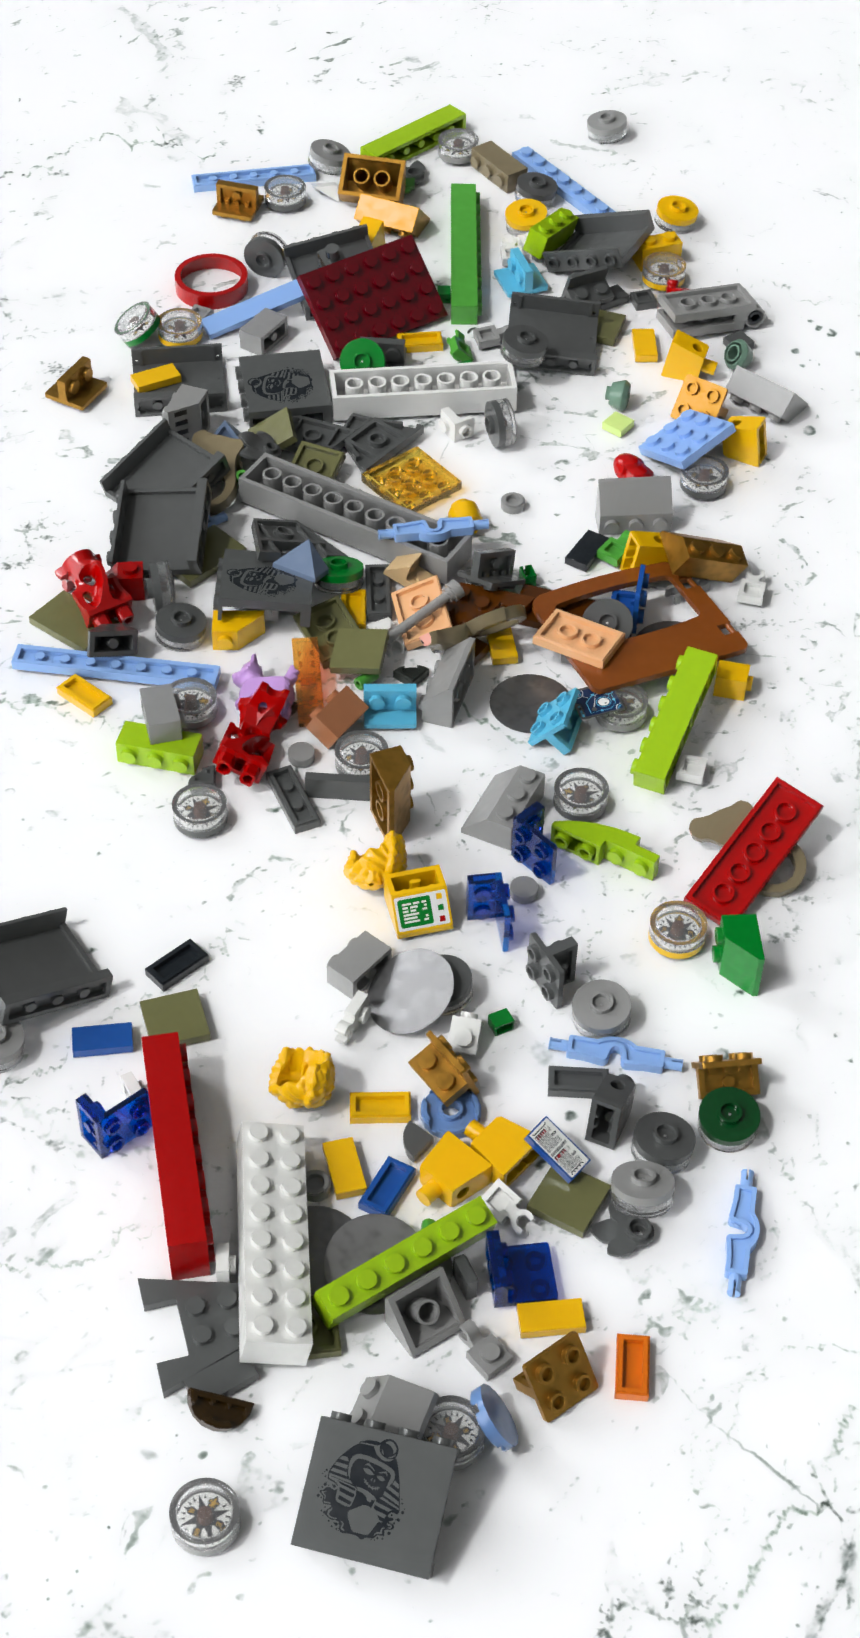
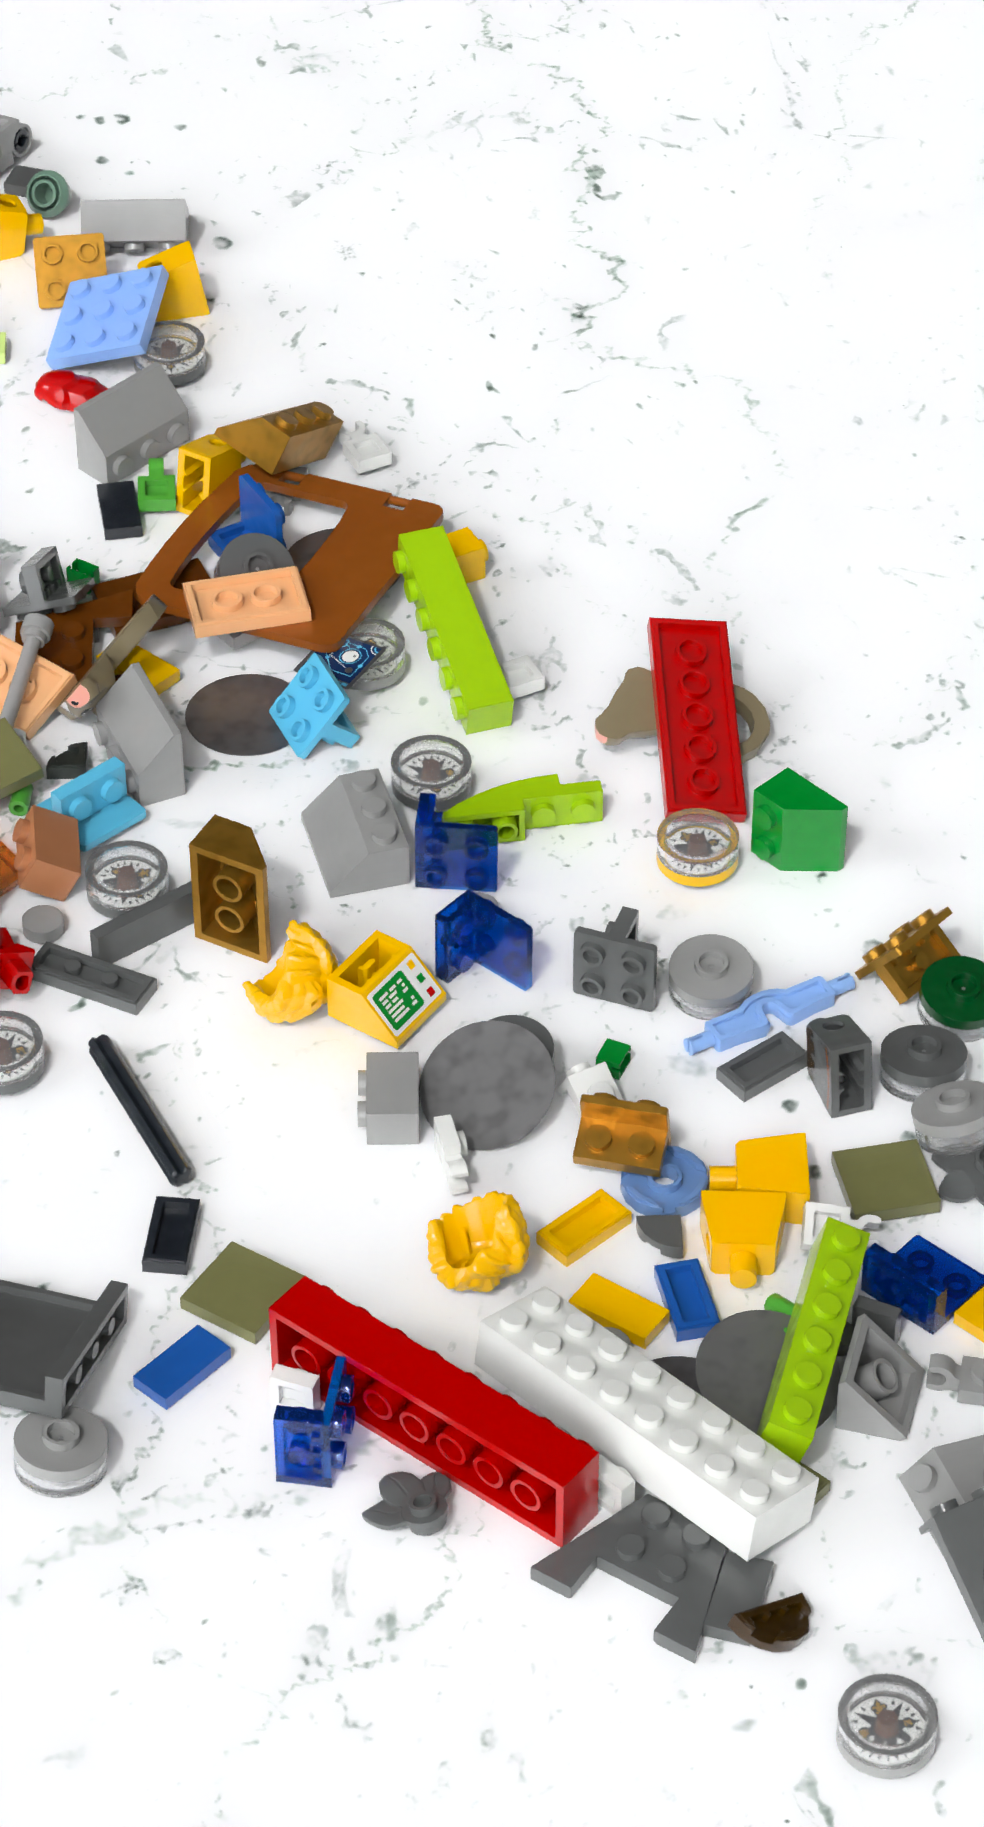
camera: 40 degrees left, 5 degrees down
(124, 1196) = (411, 1503): none -> dark grey plate
(235, 887) = (140, 1110): none -> black axle
(557, 1149) = (834, 1134): tile -> none

